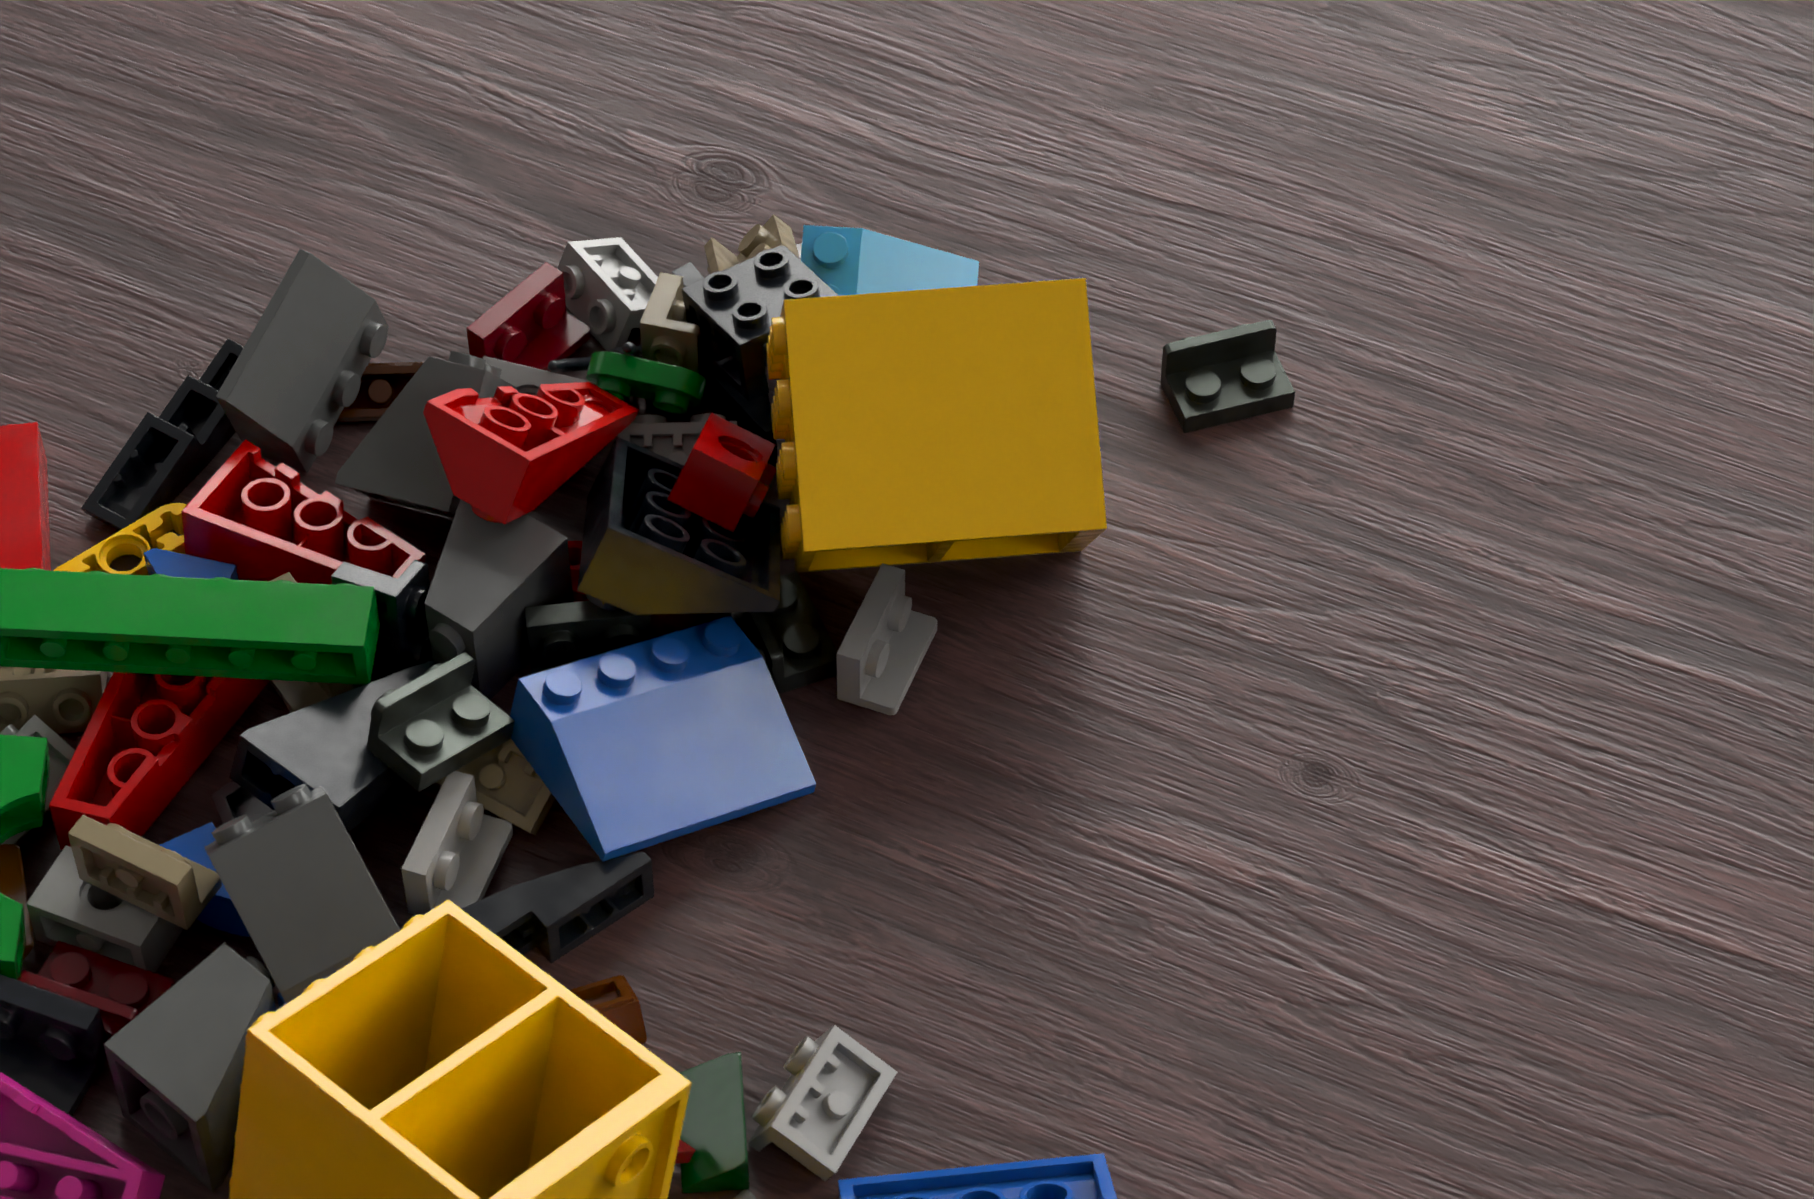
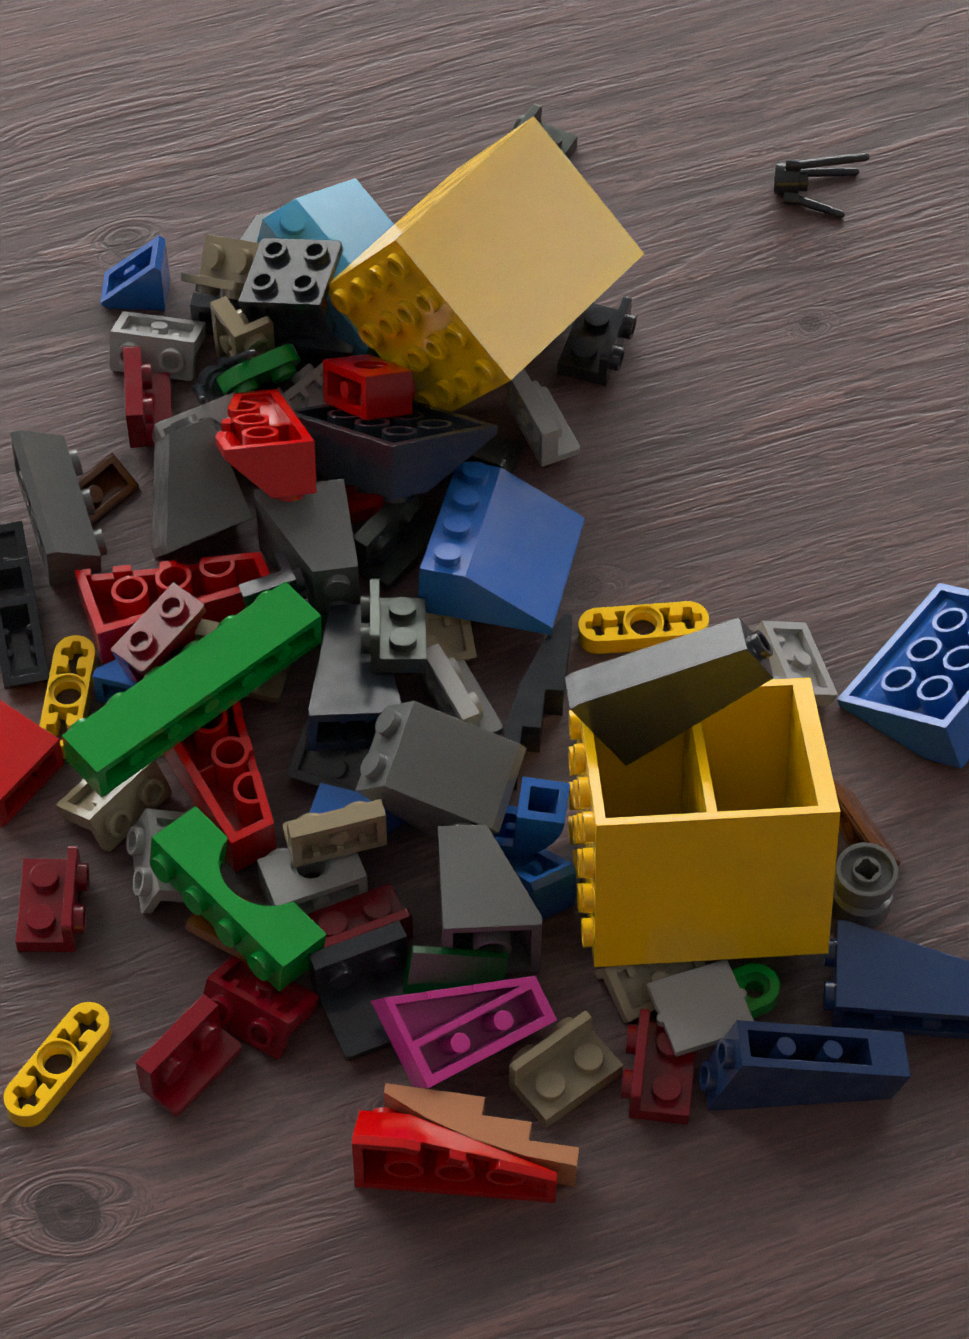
camera: 45 degrees left, 5 degrees up
(105, 1105) = (450, 968): none -> dark green slope
(226, 545) = (158, 632): none -> bracket
(500, 957) = (668, 687): none -> slope
(675, 222) = (139, 279): none -> blue slope
(742, 965) = (631, 641): none -> yellow beam
(1052, 616) = (596, 342): none -> black bracket
(1483, 606) = (794, 174): none -> black plant

